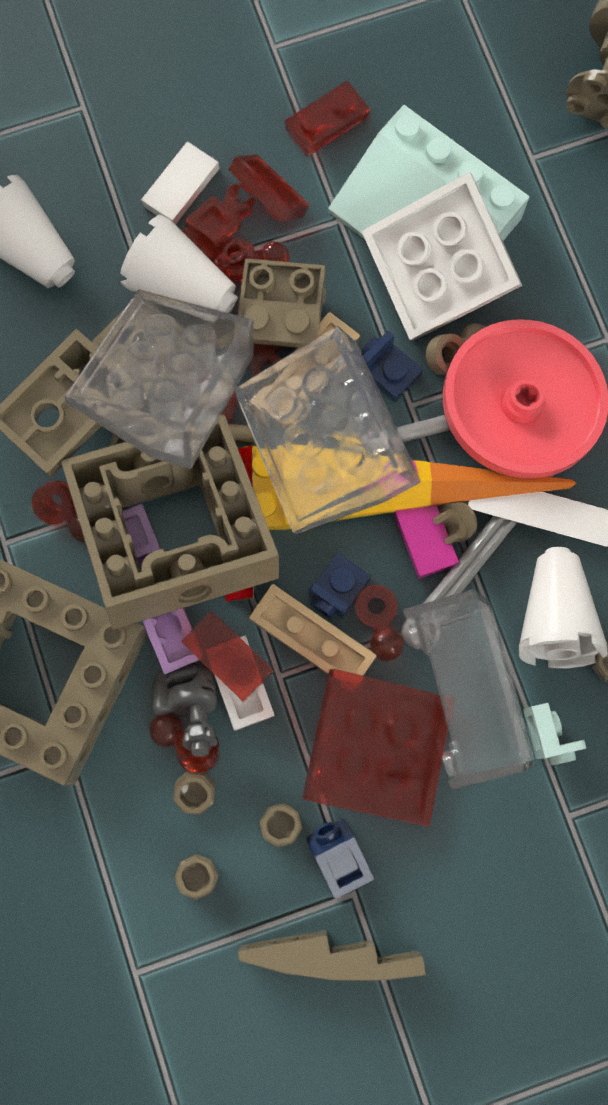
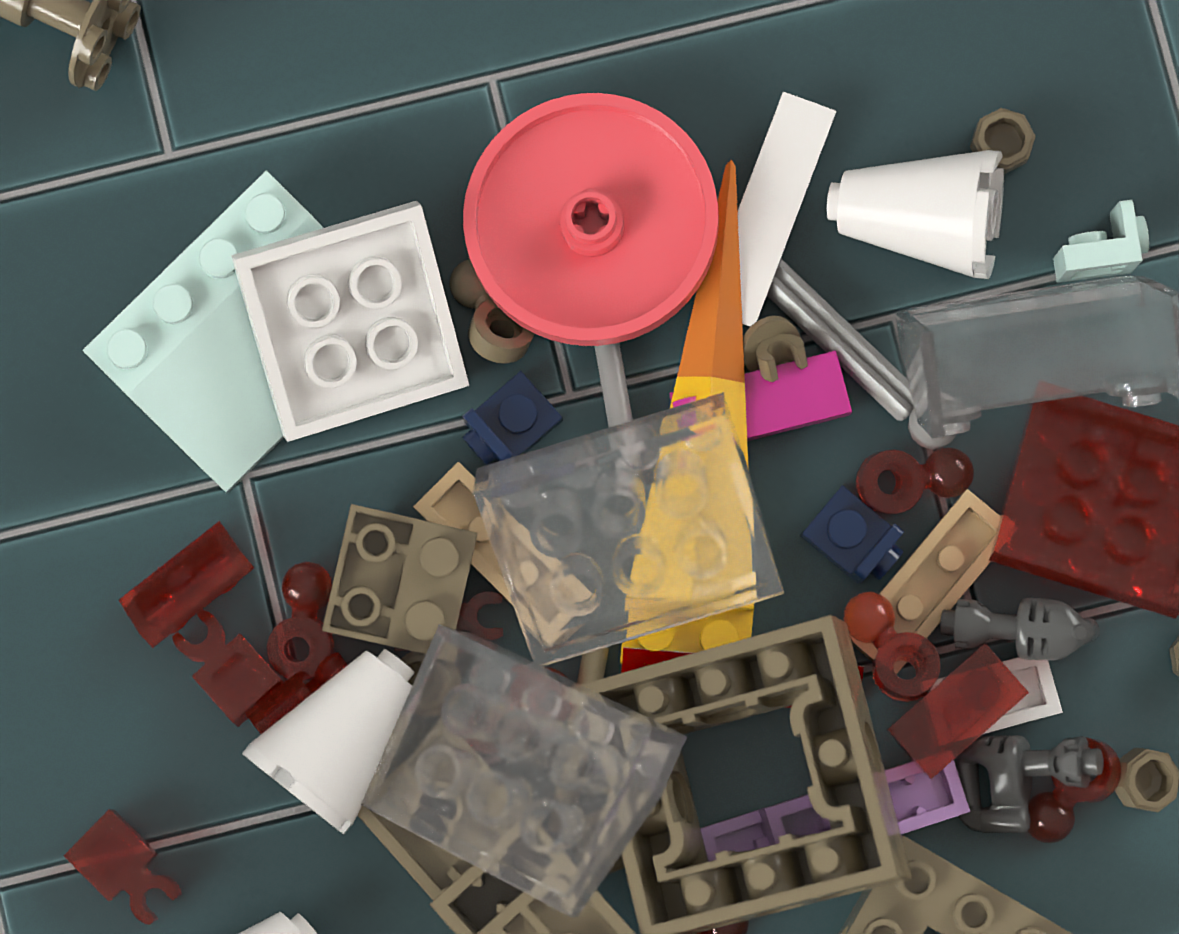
camera: 85 degrees left, 5 degrees up
(98, 167) = (115, 860): none -> clear red plate
(180, 183) = (156, 730): white tile -> none
(283, 596) = (872, 620): none -> clear red plate
(286, 705) = (1041, 627): none -> dark grey piece
(327, 118) = (65, 478): clear red plate -> none

